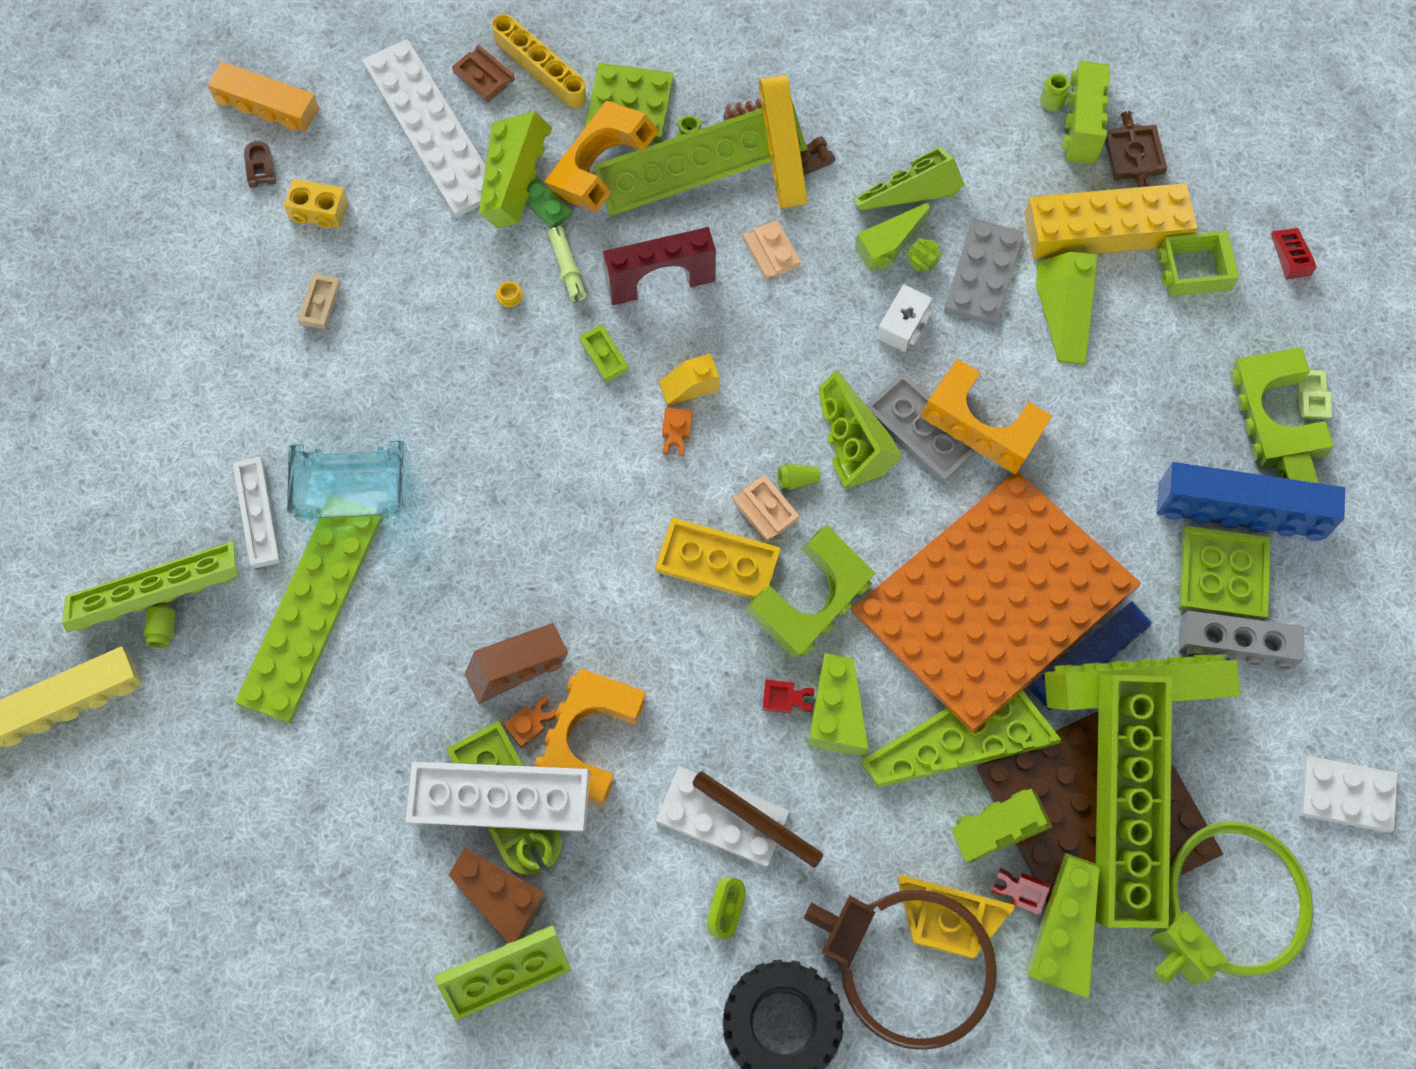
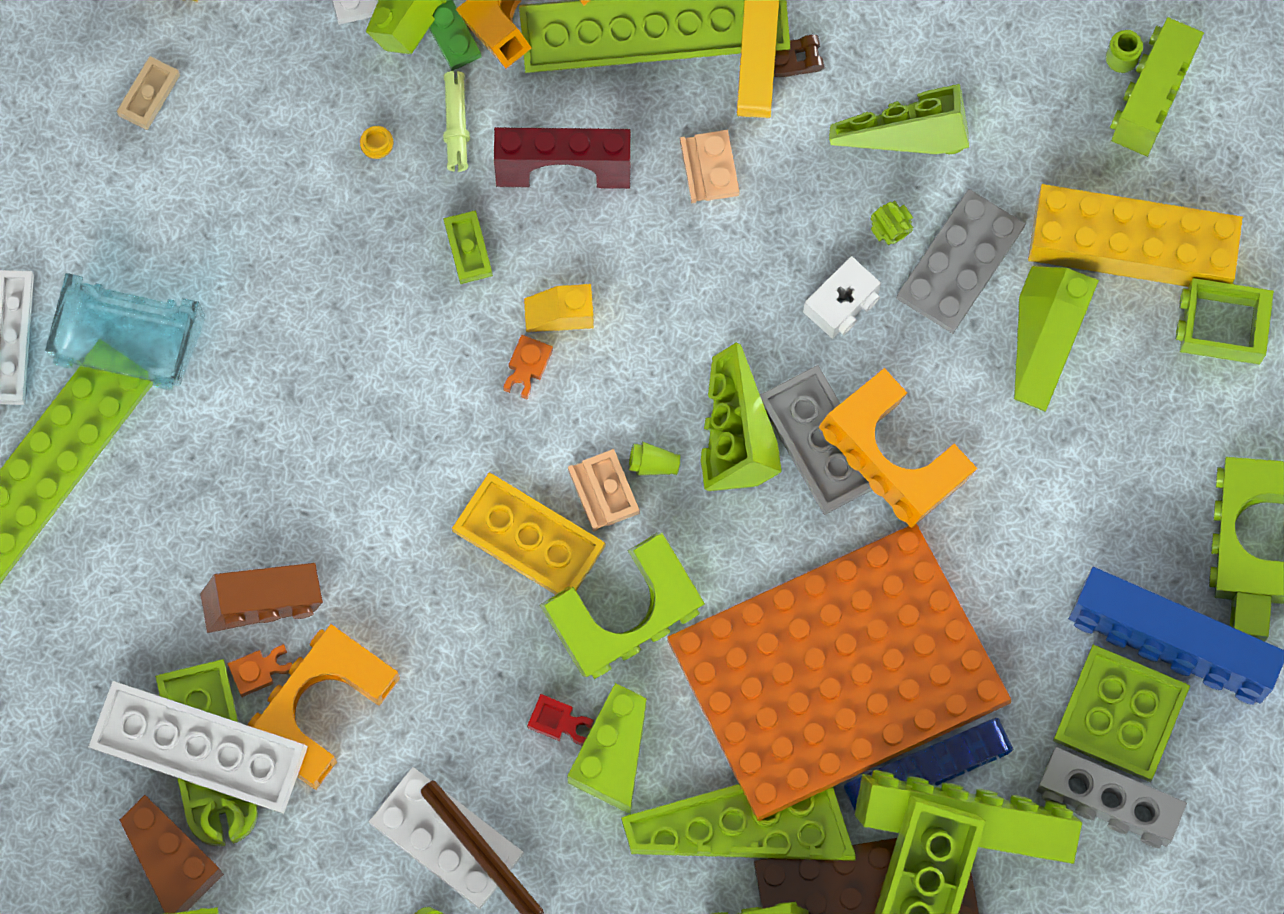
camera: 15 degrees right, 5 degrees up
(885, 241) = (852, 192): lime slope -> none
(1135, 151) = (1200, 153): reddish brown plate -> none

